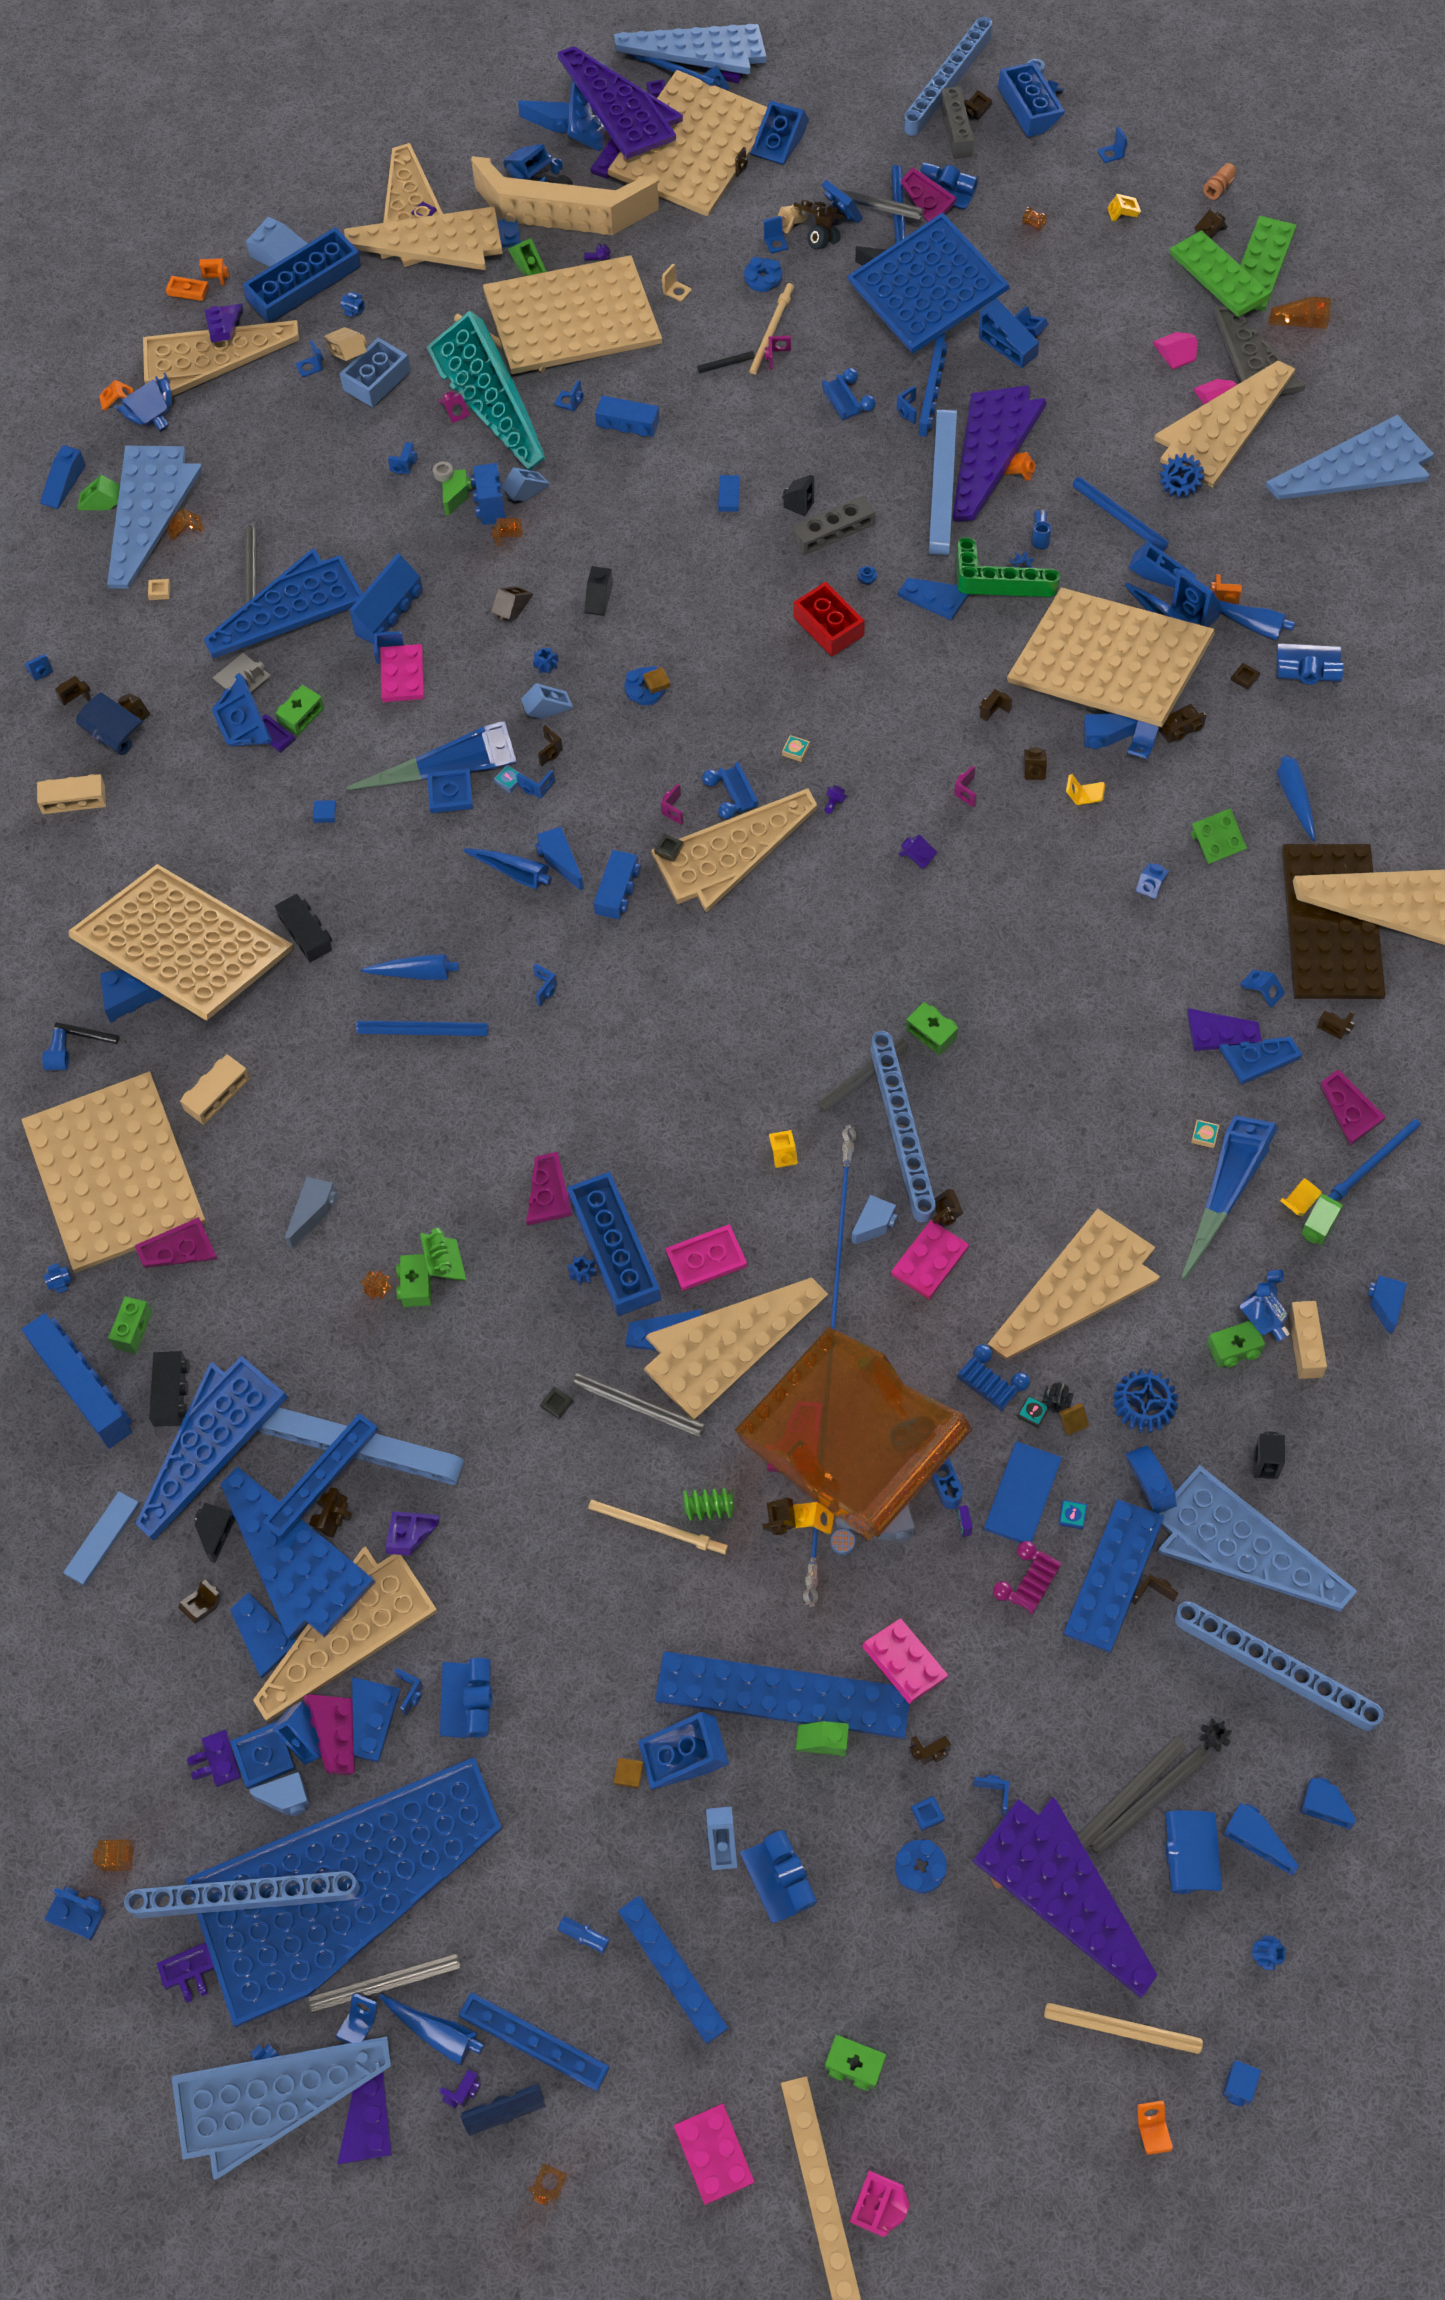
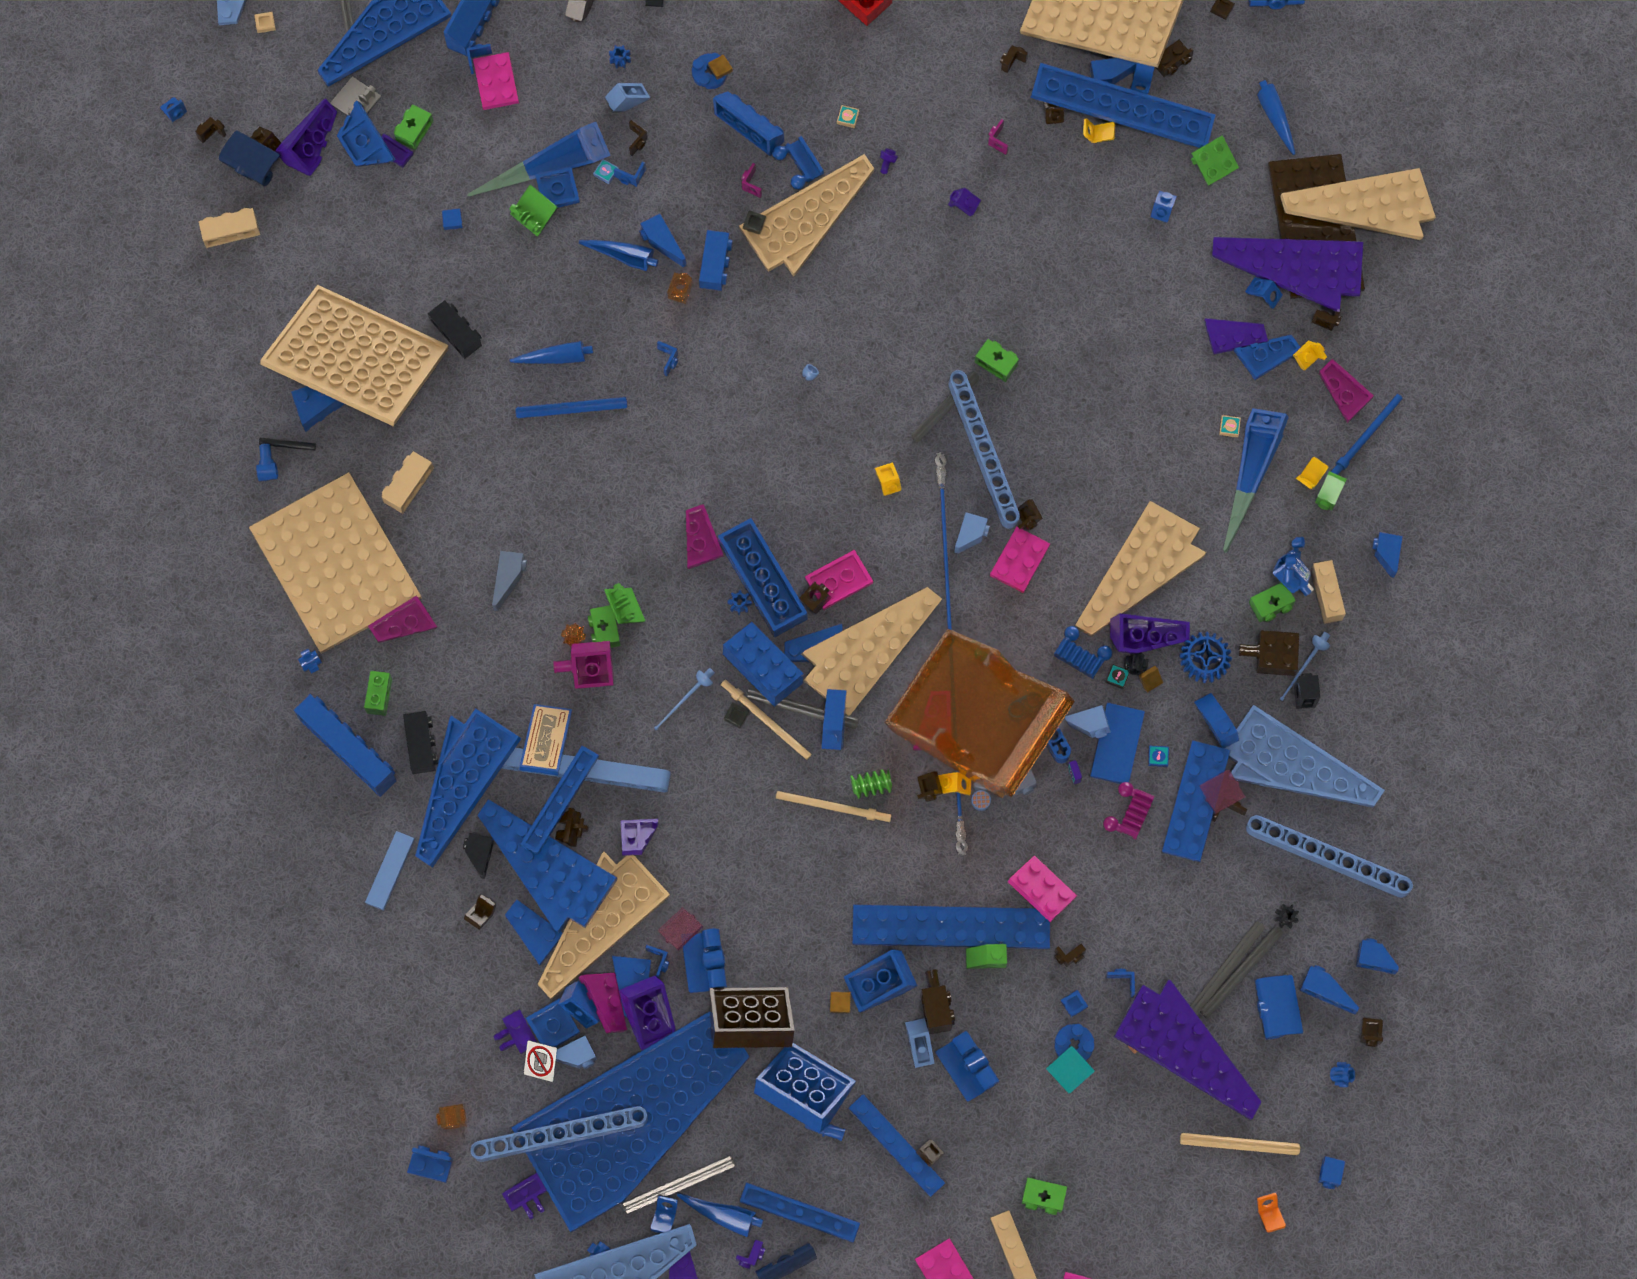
camera: 10 degrees left, 10 degrees up
(175, 716) = (304, 144): none -> dark purple wedge
(237, 1798) = (540, 1061): none -> sticker
(318, 1402) = (545, 739): none -> tile
(382, 1752) = (648, 1011): none -> dark purple slope
(387, 1320) = (590, 664): none -> magenta brick
(417, 809) = (533, 210): none -> bright green hinge
(442, 1654) = (680, 928): none -> clear pink piece
(511, 1777) = (751, 1017): none -> dark brown slope
(522, 1355) = (703, 679): none -> medium blue sword
(563, 1379) = (738, 695): none -> tan bar
(564, 1875) = (804, 1087): none -> blue slope
(568, 917) = (676, 294): none -> clear orange brick
(597, 1344) = (763, 664): none -> blue brick
(664, 1270) = (817, 605): none -> dark brown brick
(673, 1421) = (834, 719): none -> blue slope
(678, 741) = (748, 122): none -> blue slope
(708, 1019) = (810, 372): none -> medium blue hinge
(714, 1984) = (930, 1152): none -> dark brown tile
(748, 1792) = (936, 1005): none -> dark brown brick
(911, 1899) = (1070, 1069): none -> teal sticker
(991, 1461) = (1090, 722): none -> medium blue slope
(1072, 1362) = (1143, 633): none -> dark purple wedge
(1116, 765) = (1122, 106): none -> blue plate
(1148, 1565) = (1222, 791): none -> clear pink piece
(1234, 1405) = (1275, 652): none -> dark brown brick
(1291, 1401) = (1319, 643): none -> medium blue sword
(1310, 1061) = (1309, 354): none -> yellow bracket
(1312, 1901) = (1371, 1032): none -> dark brown bracket
(1318, 963) = (1305, 267): none -> dark purple wing

